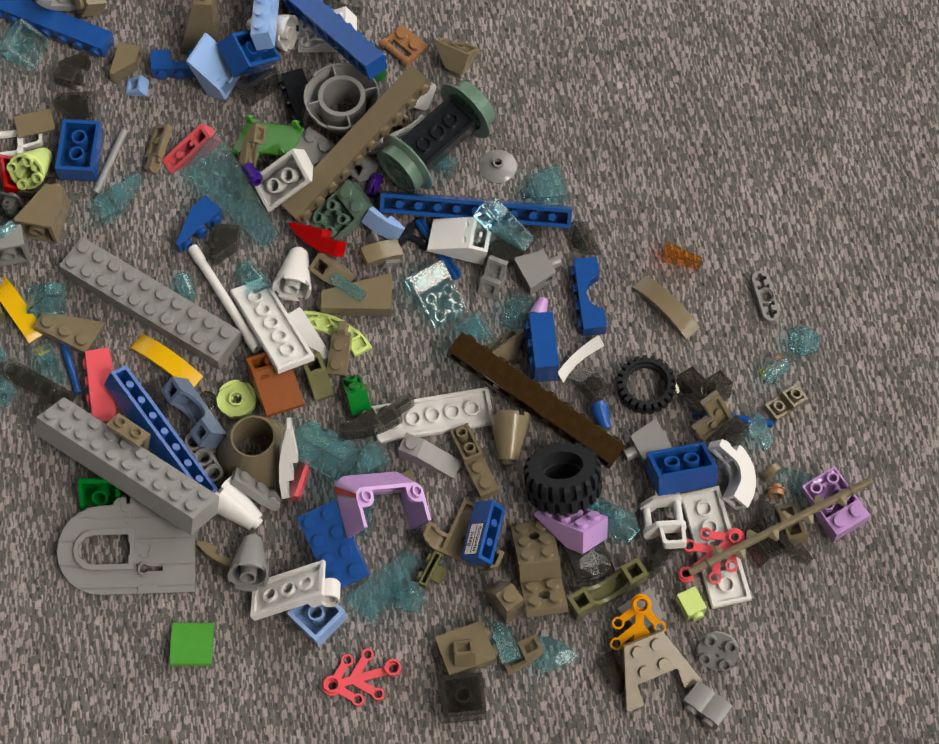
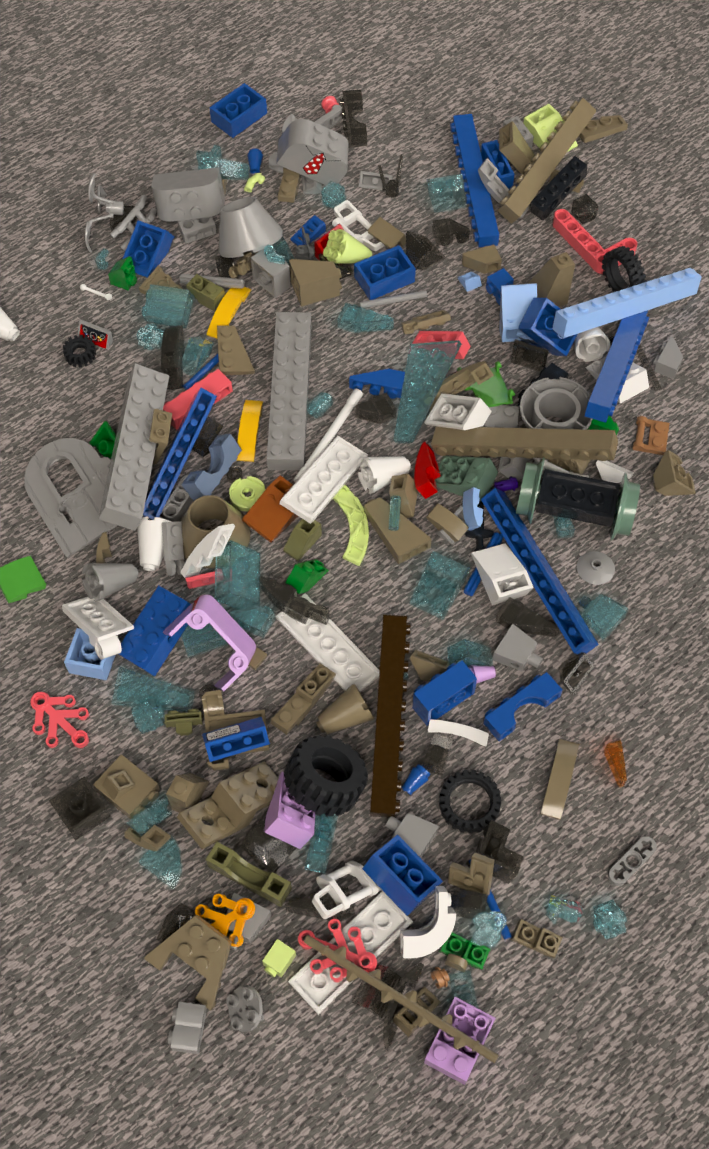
camera: 60 degrees right, 5 degrees down
(47, 298) = (247, 323): clear light blue slope -> none
(253, 276) = (361, 445): clear light blue slope -> none
(254, 177) = (441, 392): dark purple pin -> none
(308, 332) = (340, 510): white sticker -> none
(339, 351) = (338, 542): dark tan hinge -> none
(428, 456) = (286, 660): light grey slope -> none
(476, 326) = (426, 630): clear light blue slope -> none
(492, 277) = (484, 619): light grey slope -> none
(501, 222) = (534, 595): clear light blue slope -> none
(765, 459) = (462, 947): none -> green slope

